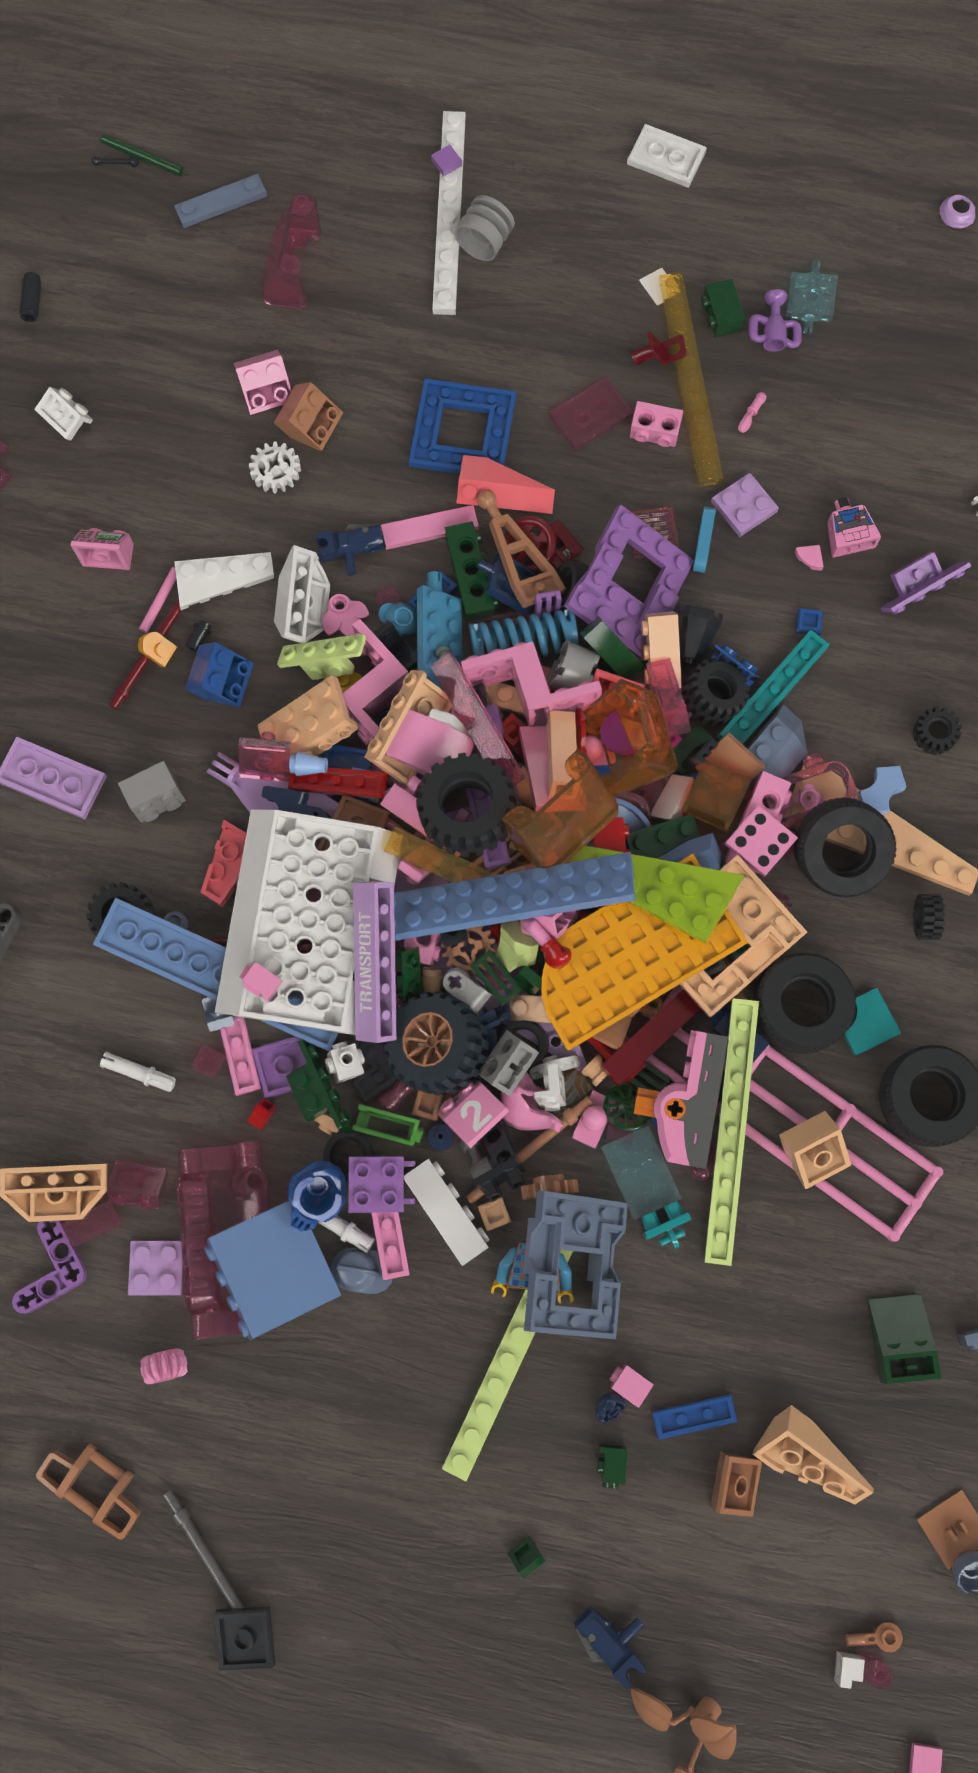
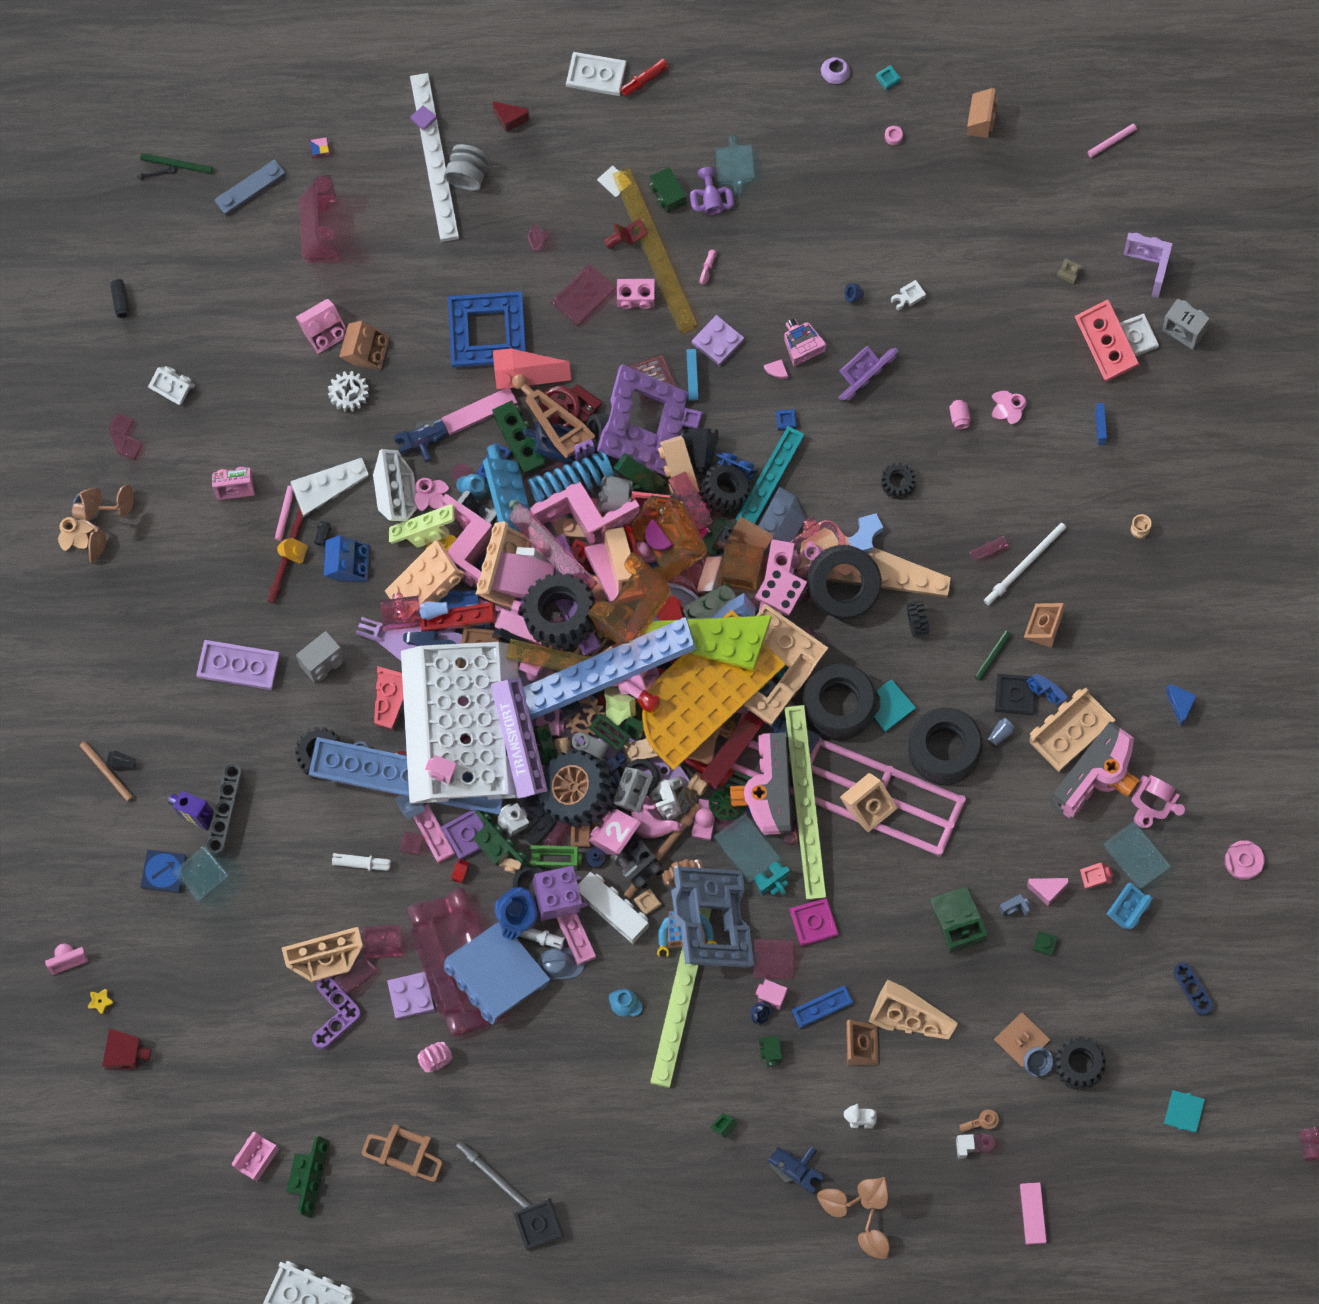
camera: 10 degrees left, 5 degrees down
(315, 172) = (319, 147): none -> tile
(392, 820) = (504, 636): none -> black tile
(434, 1346) = (625, 1003): none -> dark azure piece
(551, 331) = (537, 237): none -> clear pink tile
(552, 181) = (510, 115): none -> dark red slope
(643, 1334) = (773, 958): none -> clear pink hinge
(690, 593) = (691, 418): none -> medium lavender tile
(707, 1294) = (813, 922): none -> dark pink tile
(711, 1594) = (860, 1117): none -> white animal
(723, 171) = (643, 78): none -> red axle
(927, 482) = (853, 292): none -> dark blue tile

